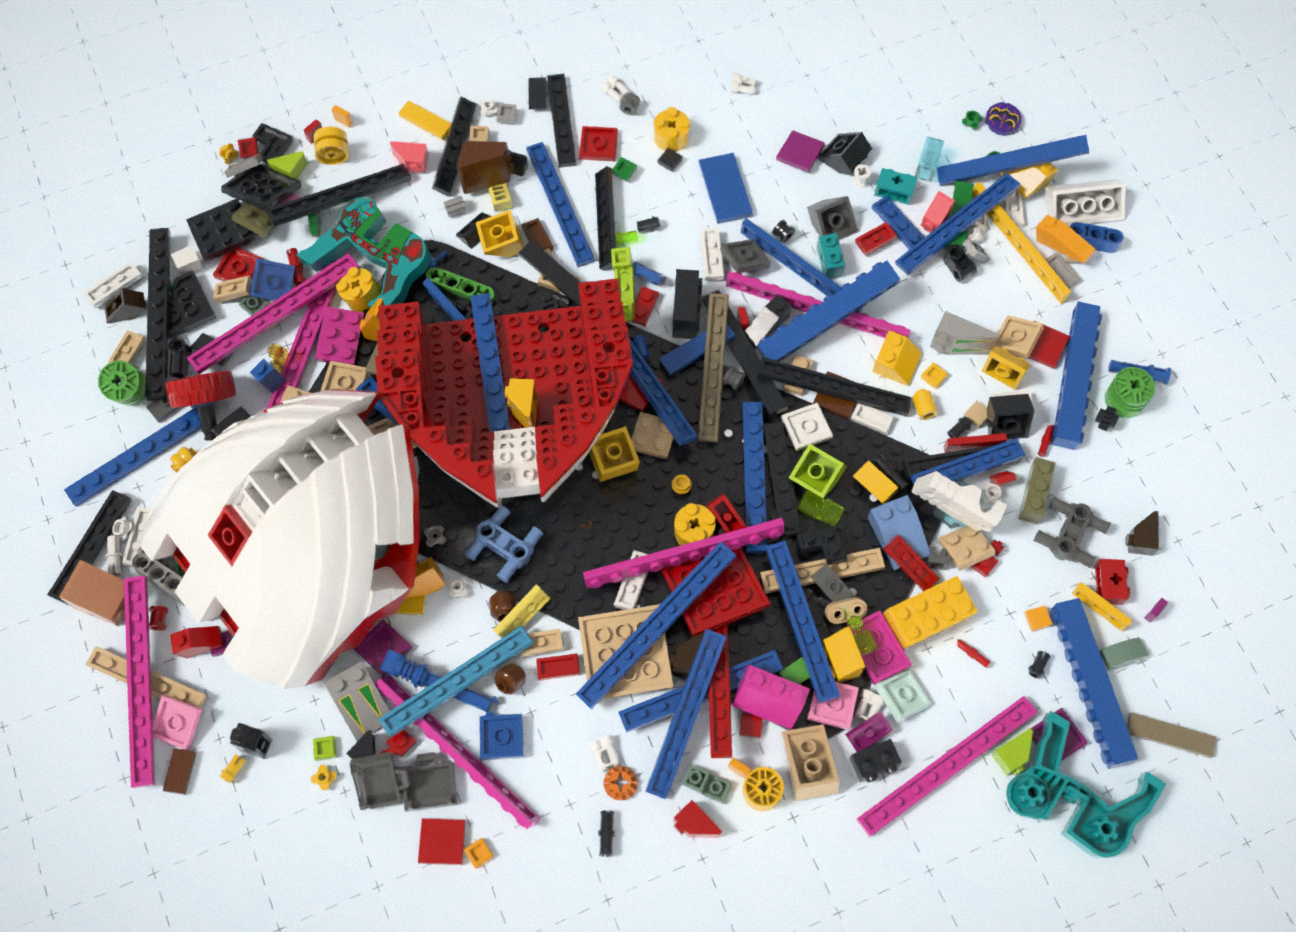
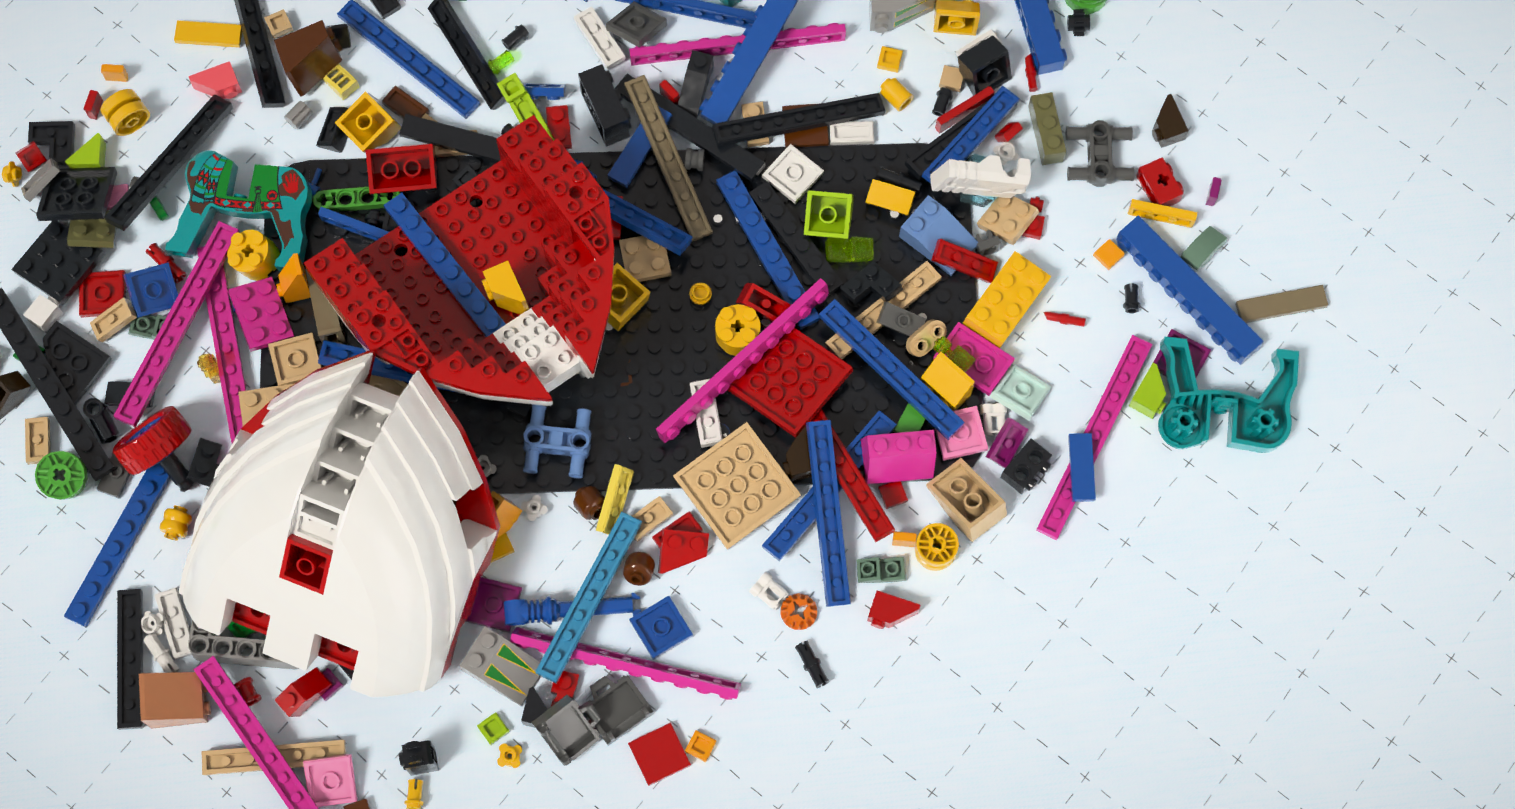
camera: 30 degrees left, 5 degrees up
(267, 375) = (208, 391): blue slope -> none
(504, 278) = (401, 168): none -> red slope
(553, 680) = (681, 548): none -> red wing
(655, 625) = (754, 444): blue plate -> none
(897, 358) = (845, 59): yellow slope -> none
(922, 786) = (1081, 467): none -> blue tile

